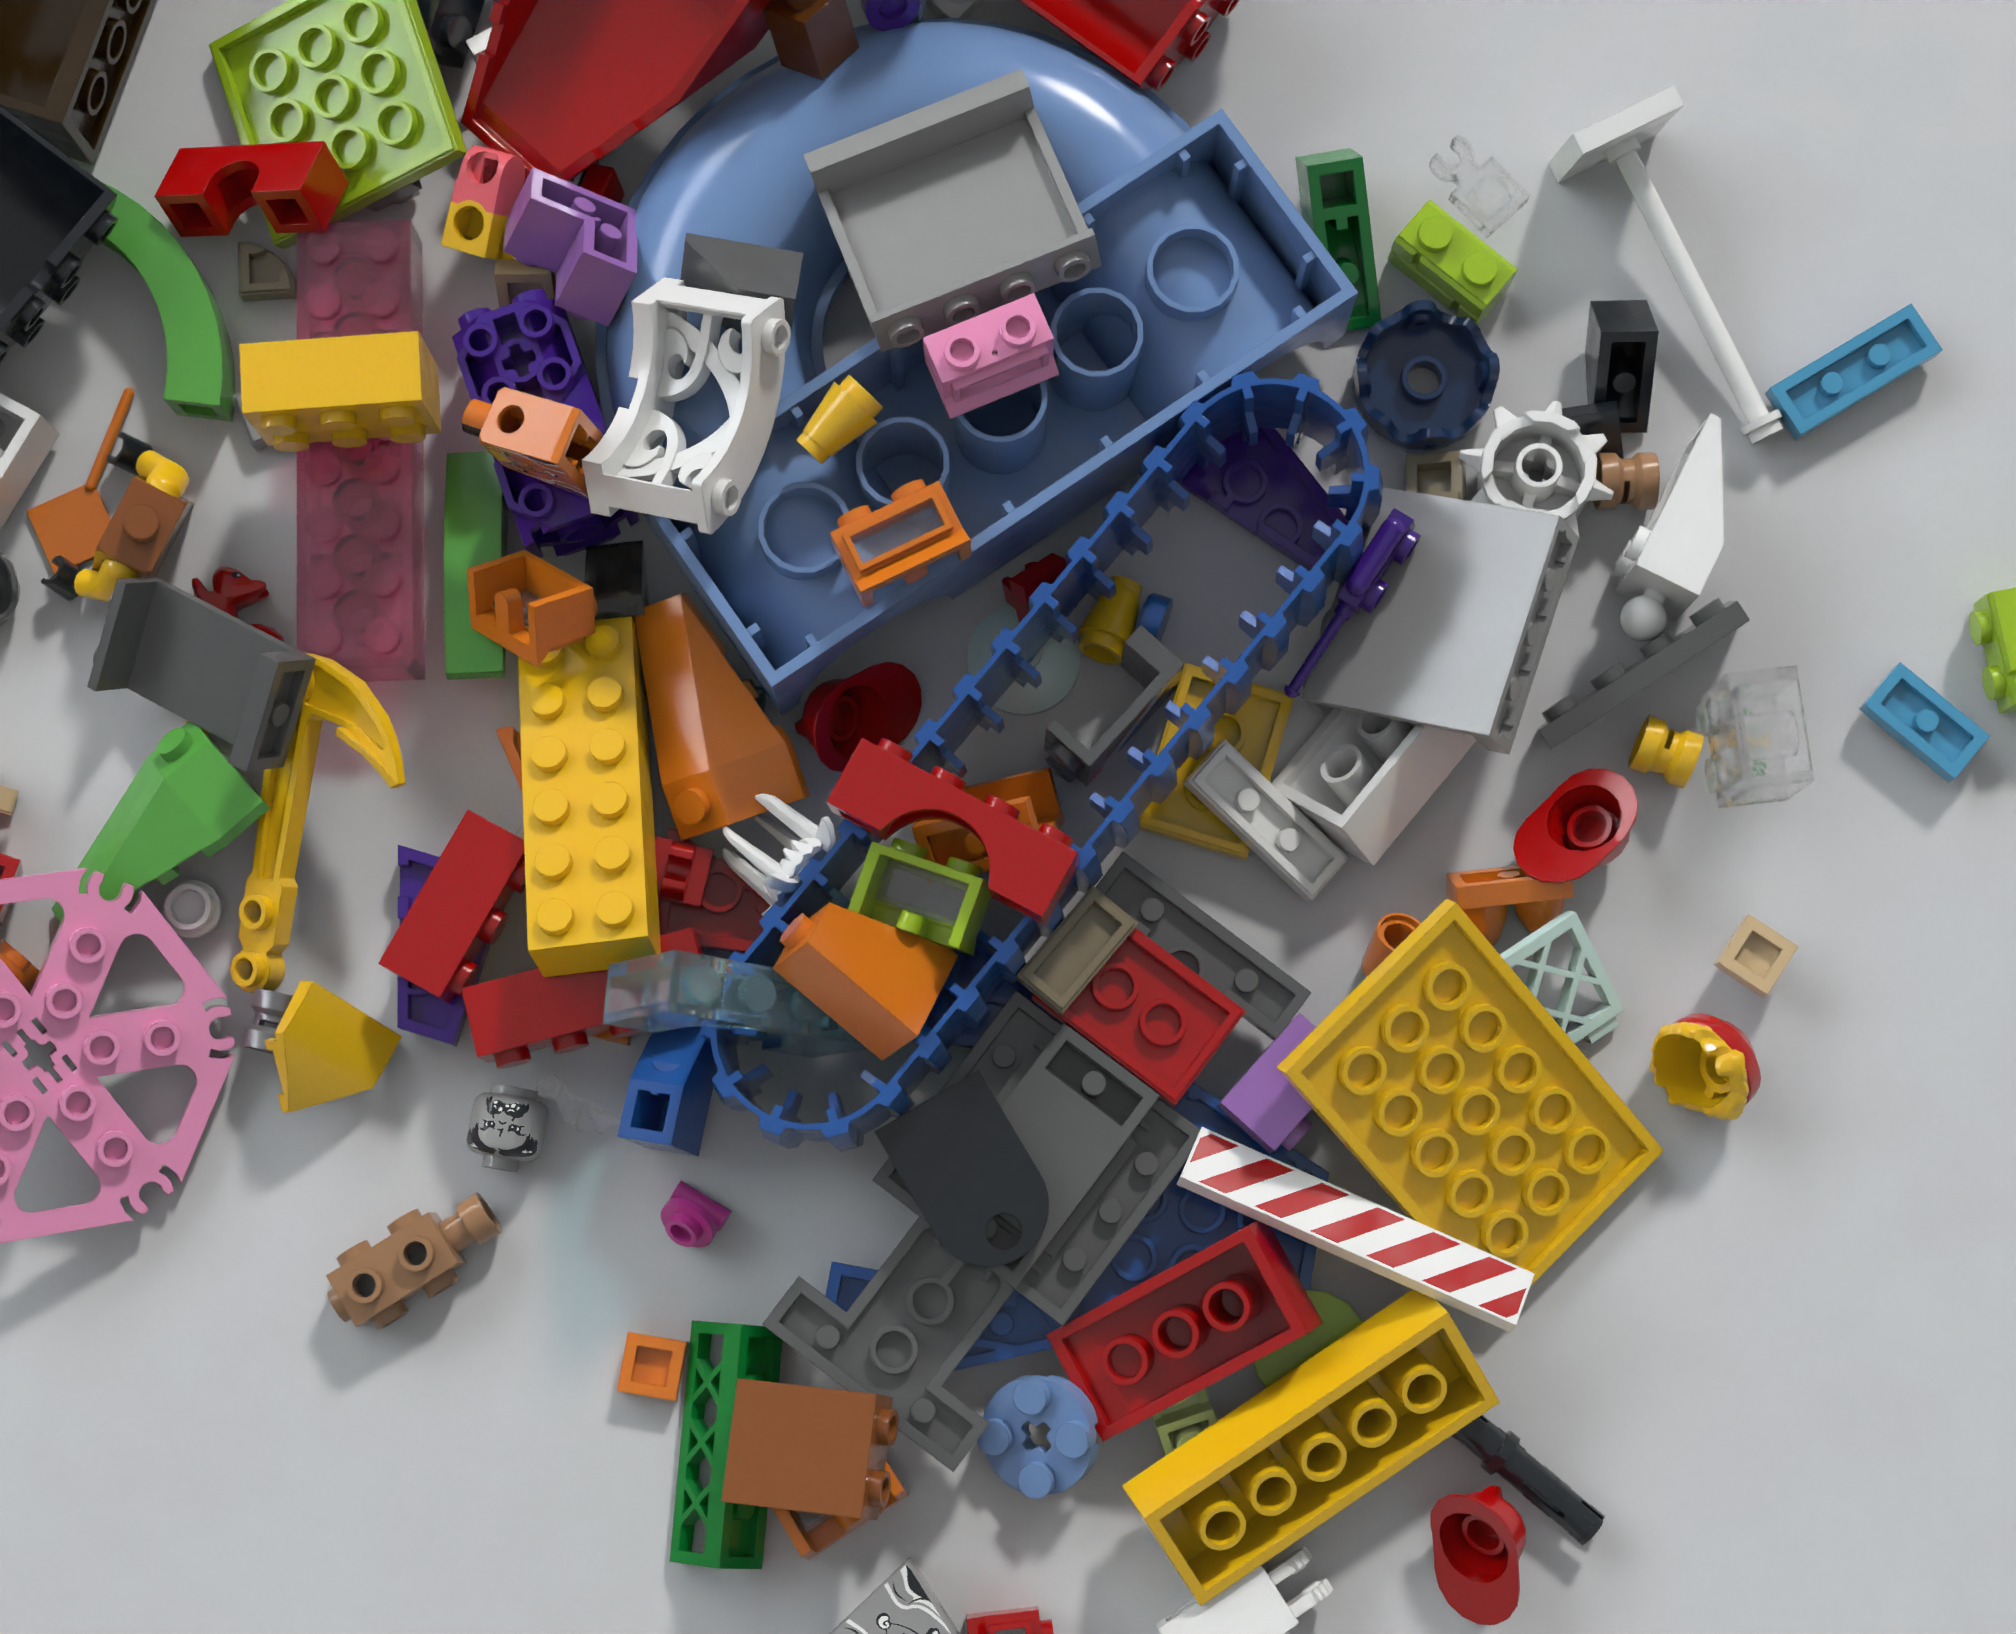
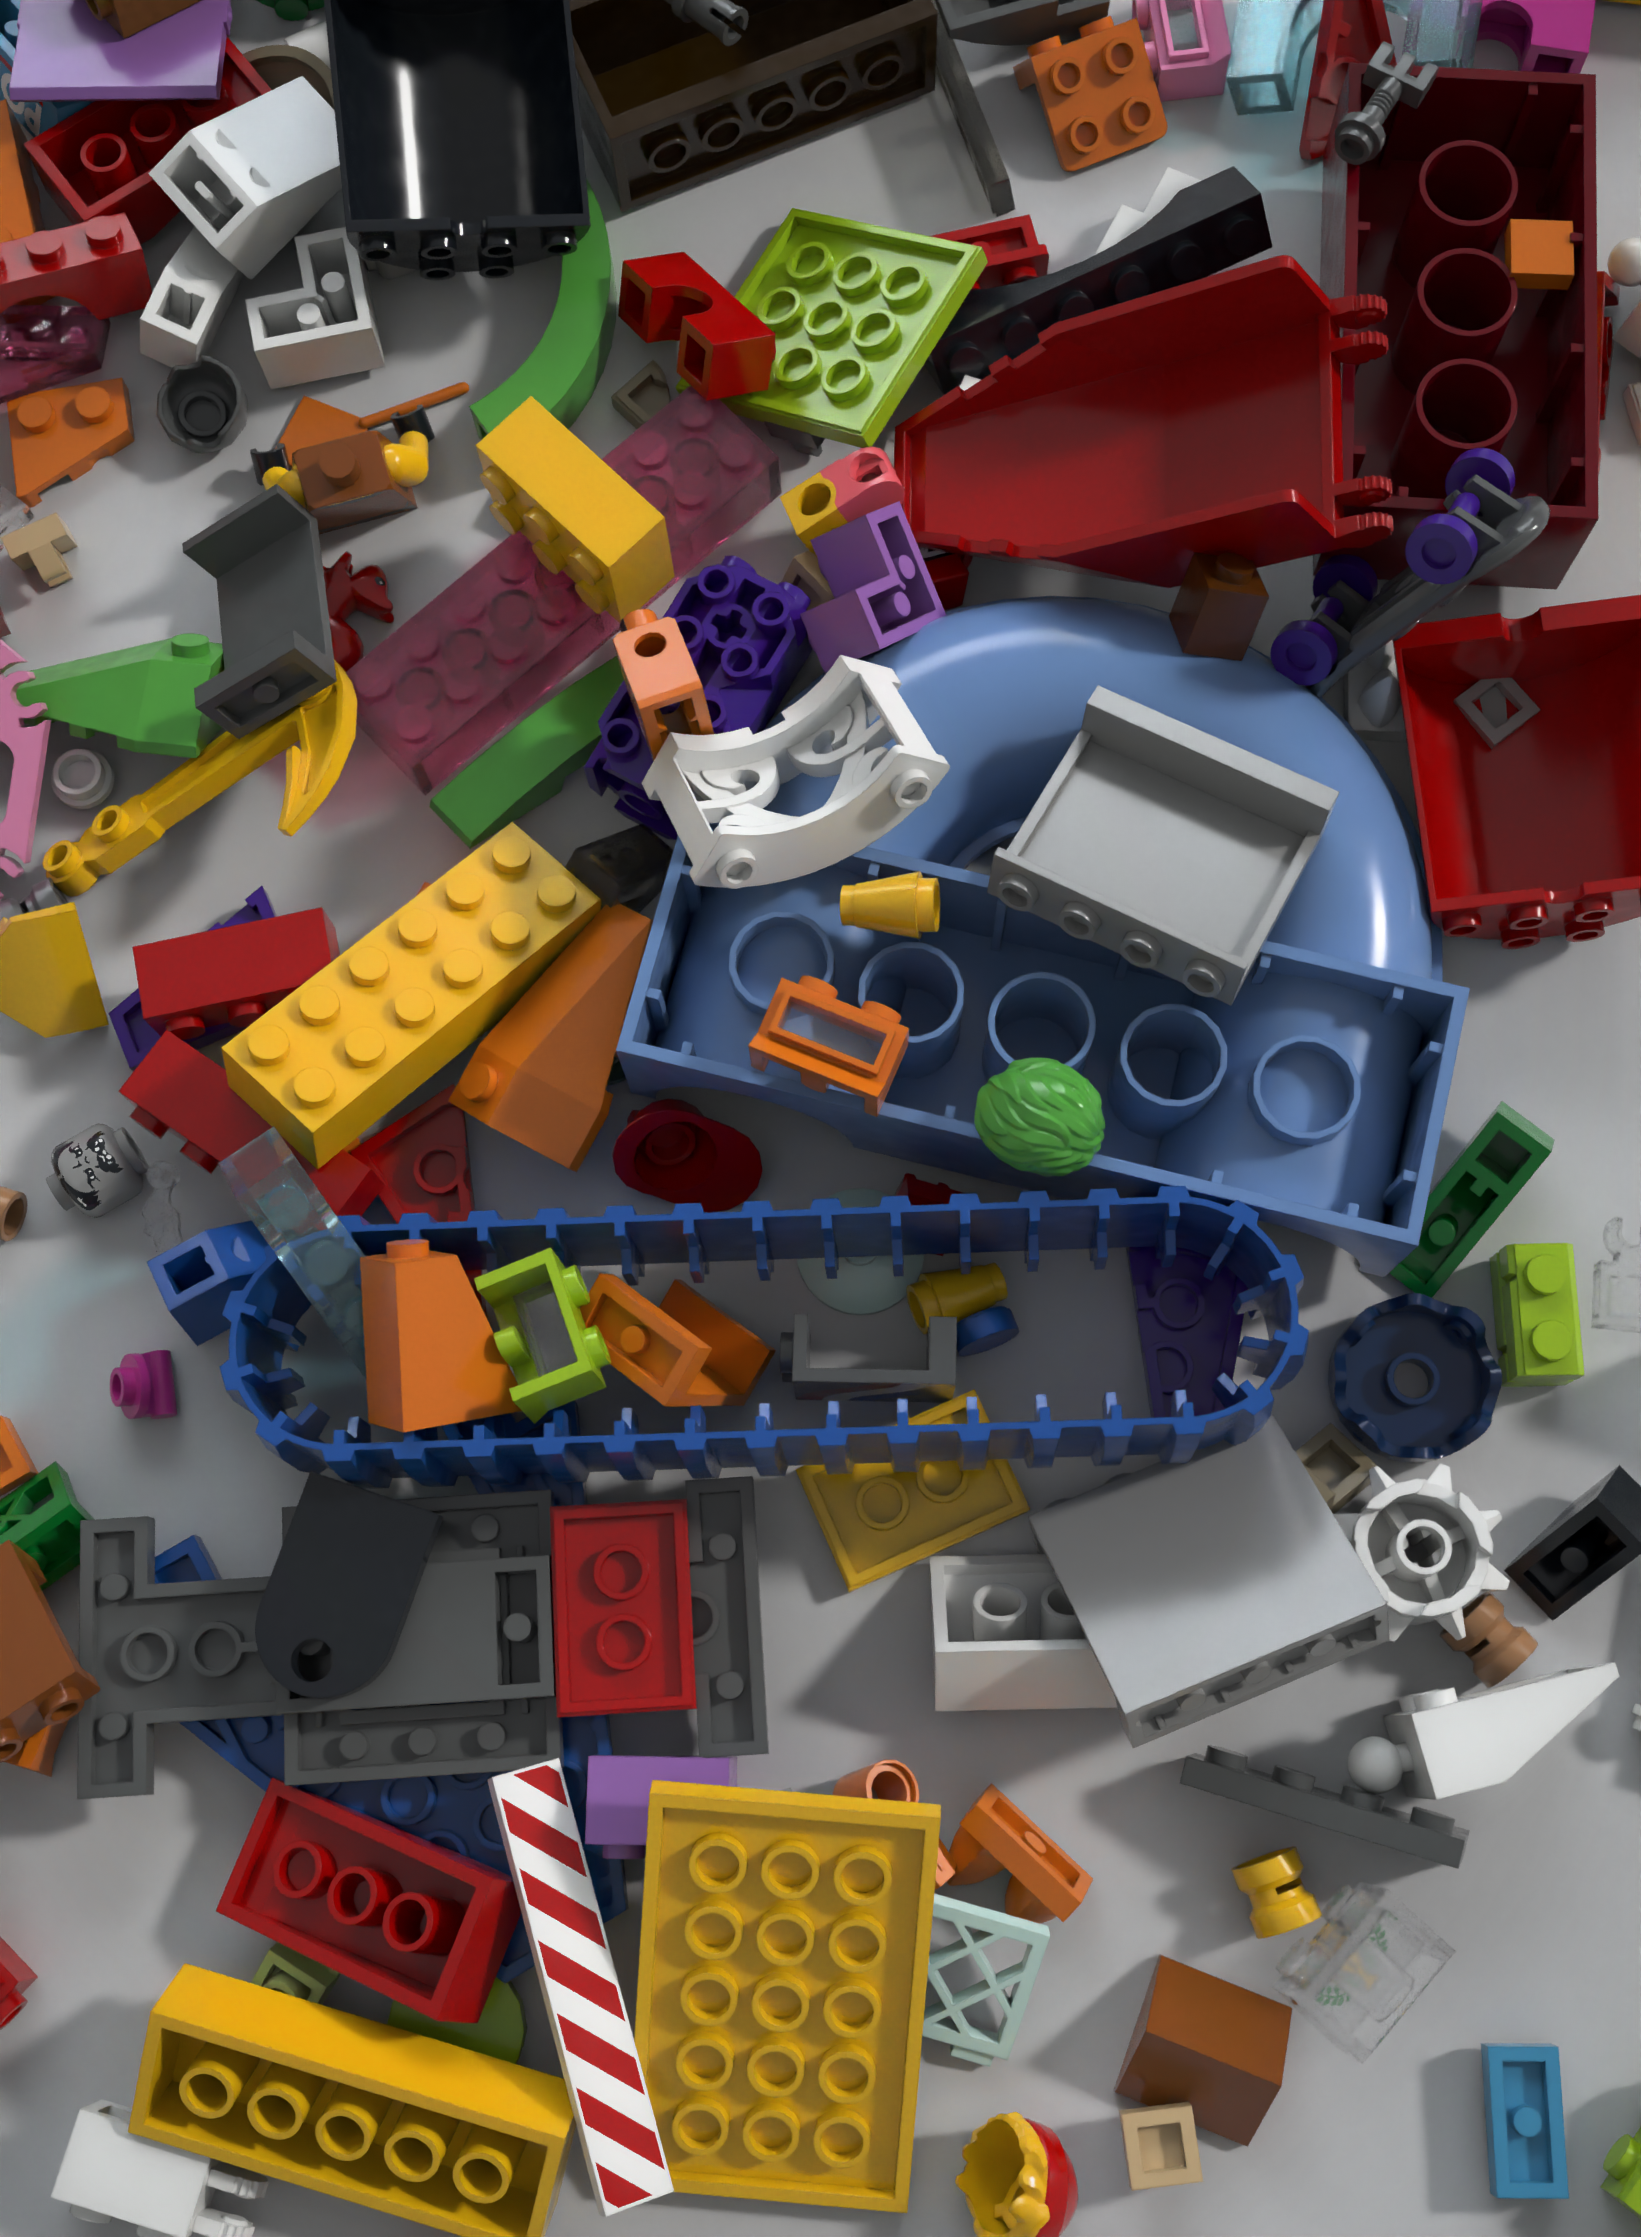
camera: 55 degrees right, 5 degrees down
(529, 605) = (533, 809): orange window -> none
(682, 871) = (423, 1123): red tile -> none
(742, 270) = (955, 730): dark grey slope -> none
(781, 878) = (510, 1206): white piece -> none
(888, 792) = (629, 1392): red arch -> none
(991, 355) = (1062, 979): bright pink window -> none
(1069, 450) = (1040, 1117): none -> bright green hair
(1072, 1435) = (147, 1849): medium blue plate -> none
(1076, 951) = (619, 1510): dark tan tile -> none
(1265, 820) = (894, 1580): white tile -> none
(1363, 585) = (1171, 1481): dark purple piece -> none
(1577, 827) = (1130, 1870): red piece -> none
(1599, 419) = (1518, 1565): black tile -> none
(1721, 877) = (1208, 2048): none -> dark orange slope

